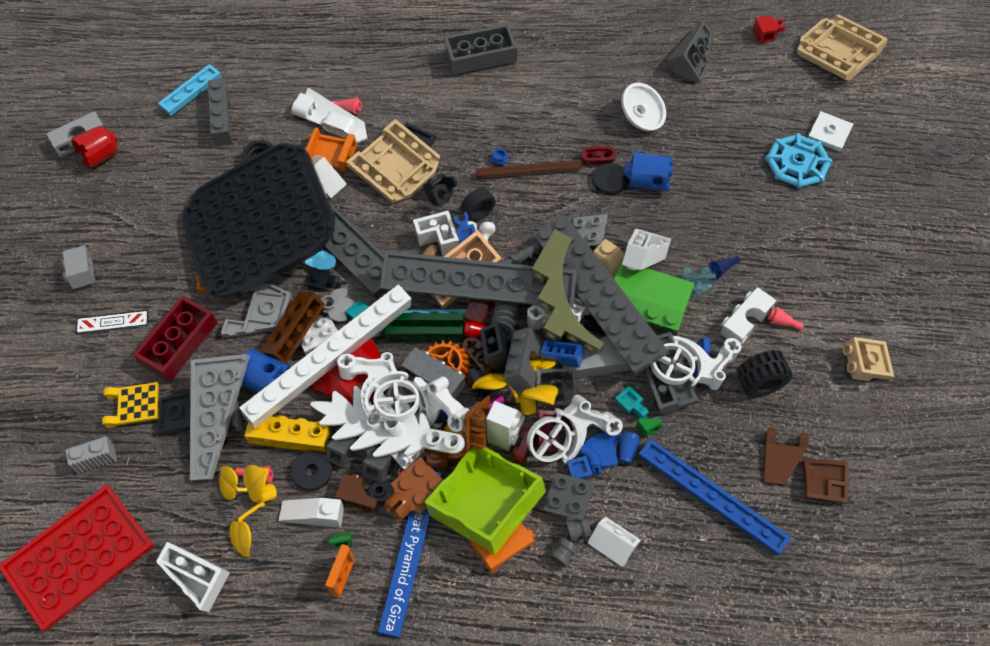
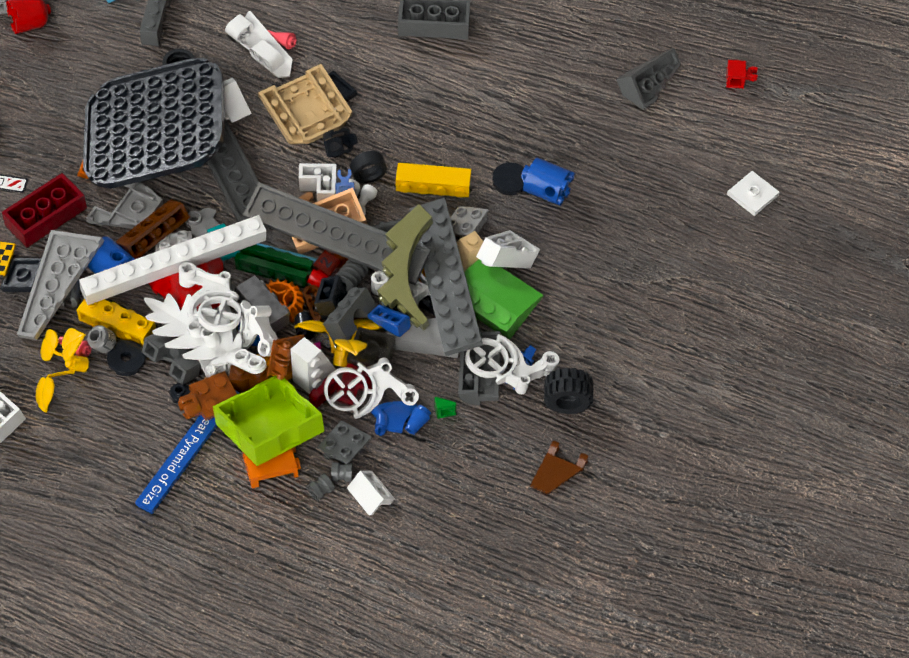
camera: 15 degrees right, 5 degrees down
(280, 459) = (101, 339): none -> light grey head
(313, 512) = (115, 391): white slope -> none
(321, 261) = (200, 177): medium azure piece -> none
(322, 279) = (195, 195): black plate -> none
(333, 149) = (249, 76): orange panel -> none
(340, 538) = (131, 422): green slope -> none
(340, 571) = (119, 442): orange plate -> none
(352, 494) = (154, 386): reddish brown arch -> none
(499, 157) = (410, 128): blue plate -> none
(528, 169) = (434, 148): reddish brown axle -> none
(542, 200) = (433, 180): none -> yellow brick
(579, 468) = (366, 423): blue plate -> none
(598, 155) = (509, 152): dark red plate -> none
(631, 401) = (437, 383): teal plate -> none
(643, 107) = (577, 113): white dish -> none
(702, 280) = (551, 296): clear light blue hips -> none
(715, 497) = (477, 482): blue plate -> none
(722, 266) = (578, 289): clear blue cone -> none
(756, 305) = (595, 332): white arch -> none
(779, 317) = (613, 350): coral cone -> none
(804, 149) = (705, 220): medium azure plate -> none
(826, 480) = (586, 499): reddish brown plate -> none
(841, 46) = (805, 112): tan wedge -> none
(868, 359) = (678, 409): tan plate -> none

